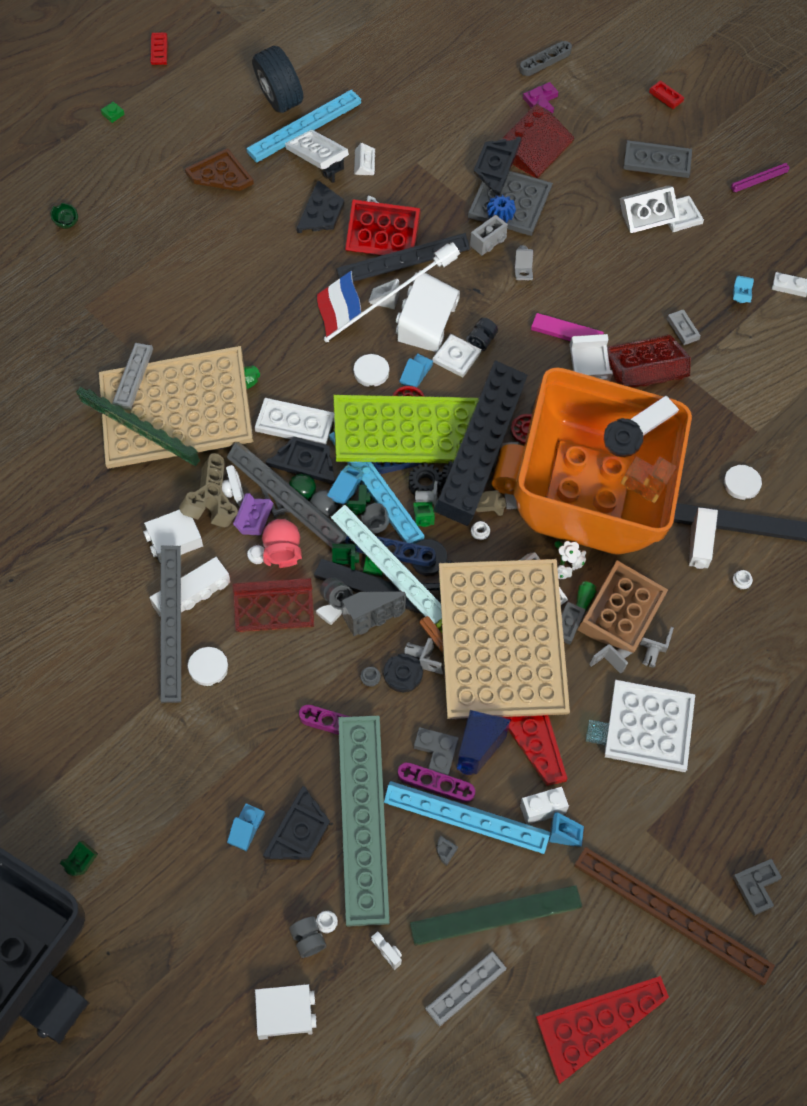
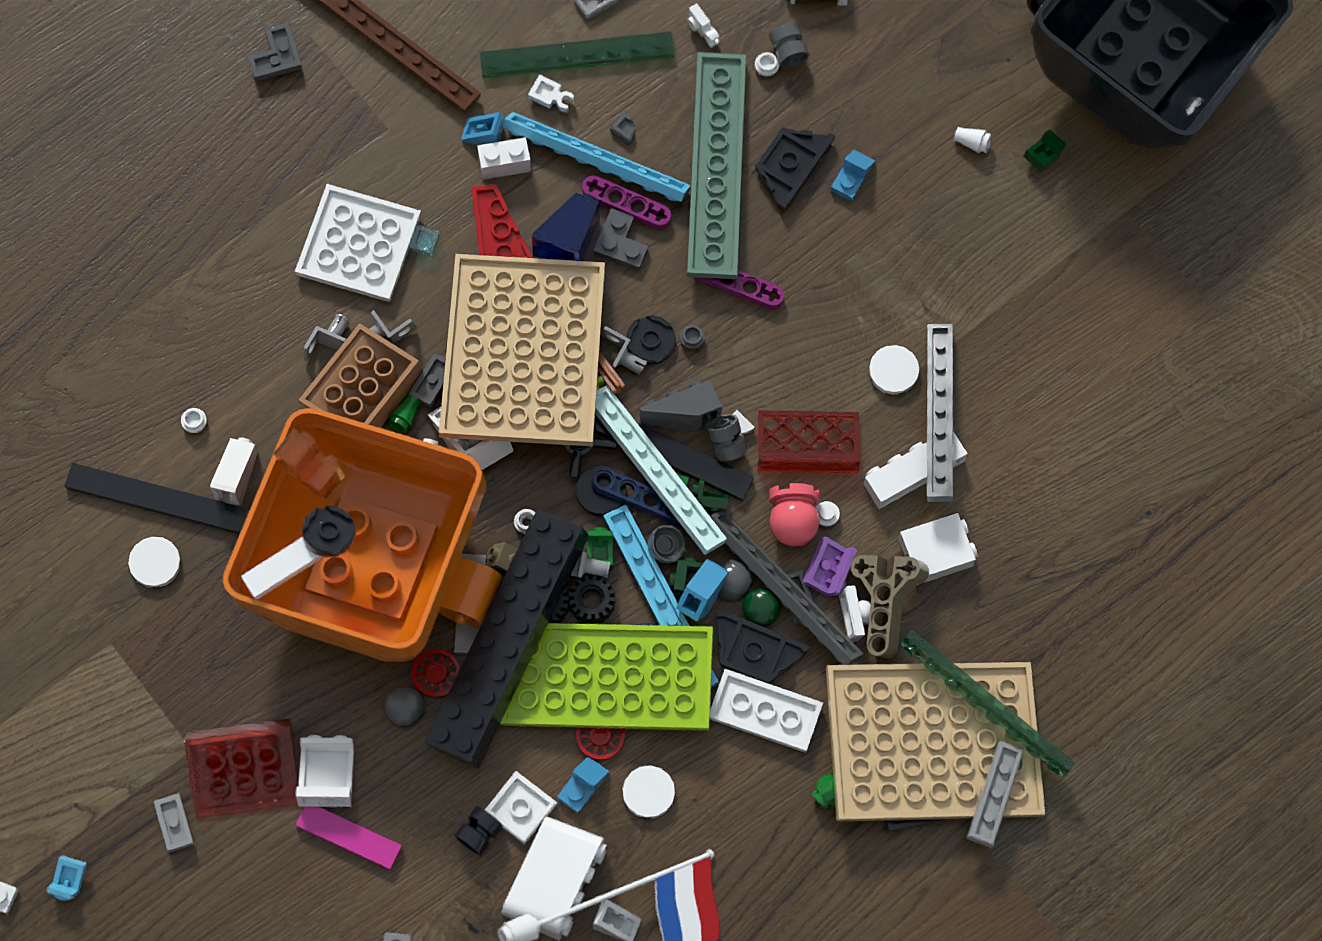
camera: 175 degrees left, 10 degrees up
(140, 867) = (974, 139): none -> white cone
(517, 872) = (548, 92): none -> white plate

